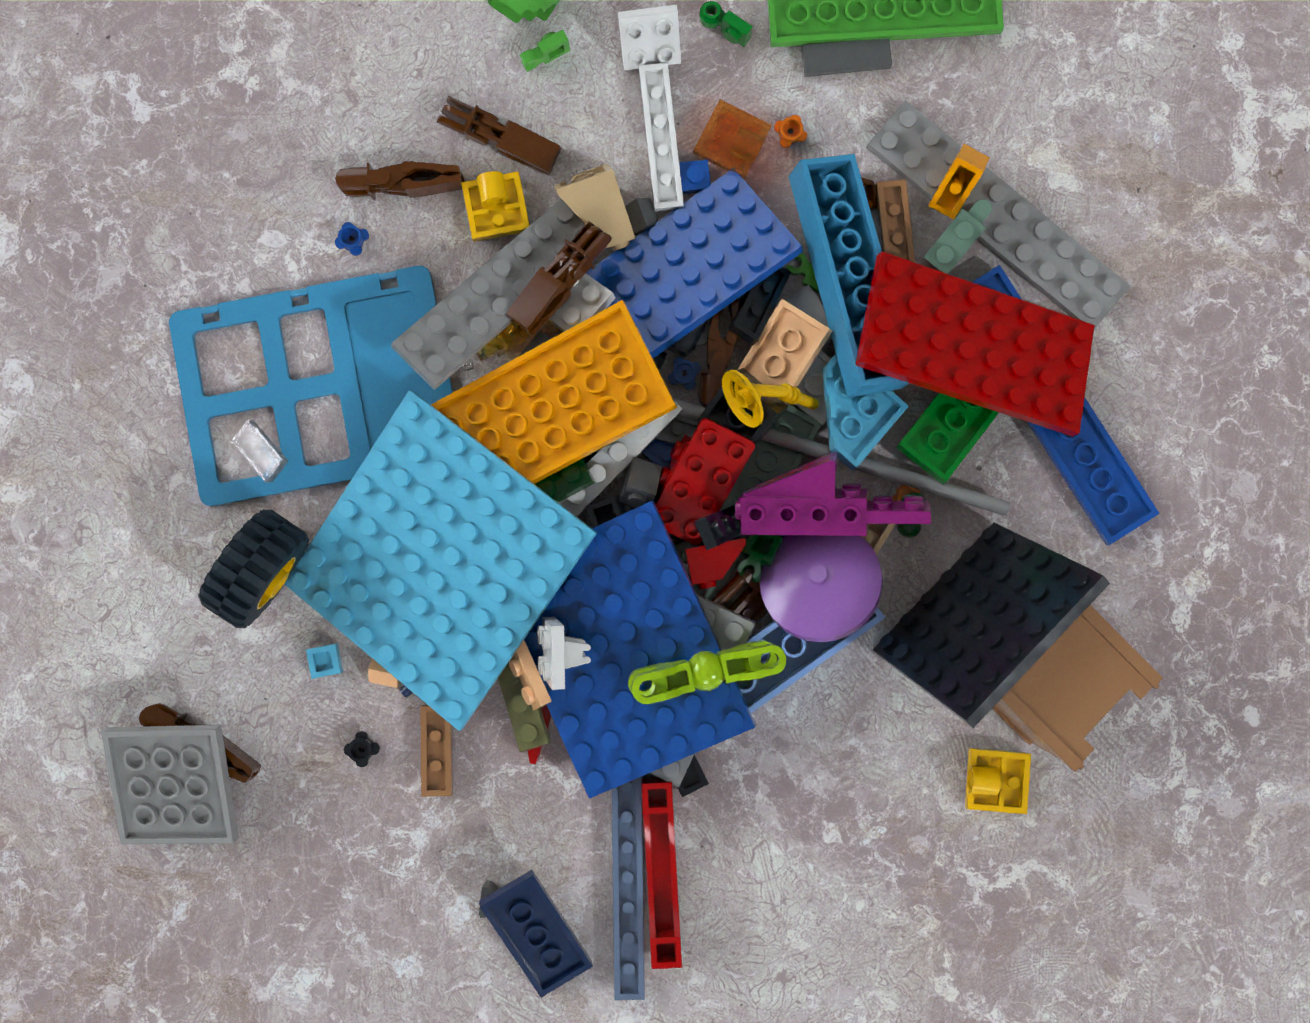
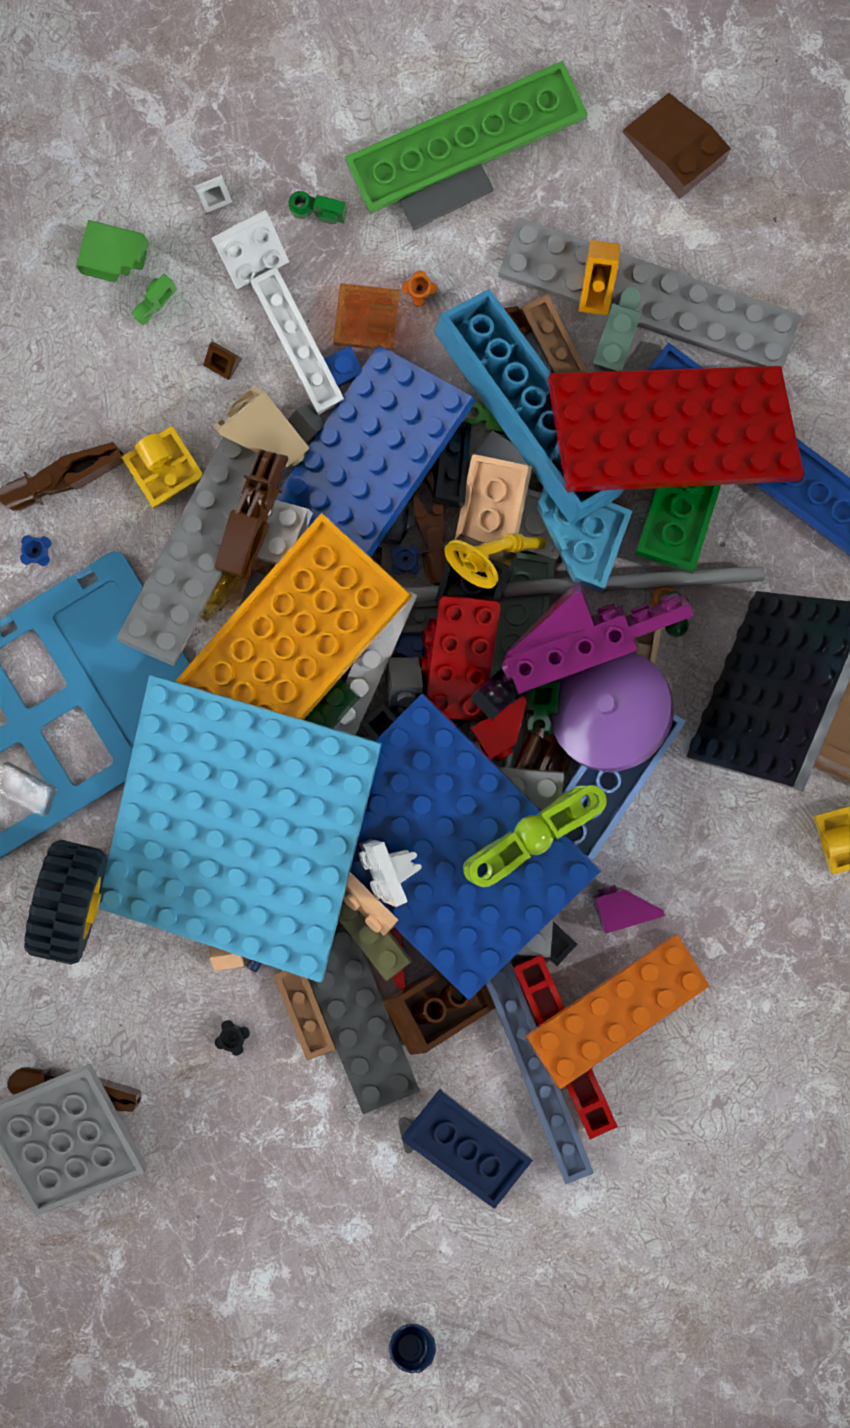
camera: 15 degrees left, 0 degrees up
(324, 661) = (164, 966): medium azure plate -> none
(484, 785) = (362, 1027): none -> dark grey plate
(515, 140) = (158, 397): reddish brown arm -> none
(553, 795) = (434, 1011): none -> reddish brown slope
(585, 129) = (221, 360): none -> reddish brown slope
(721, 859) = (617, 1011): none -> orange plate
(762, 767) = (622, 909): none -> magenta slope
(1076, 88) = (677, 144): none -> reddish brown slope

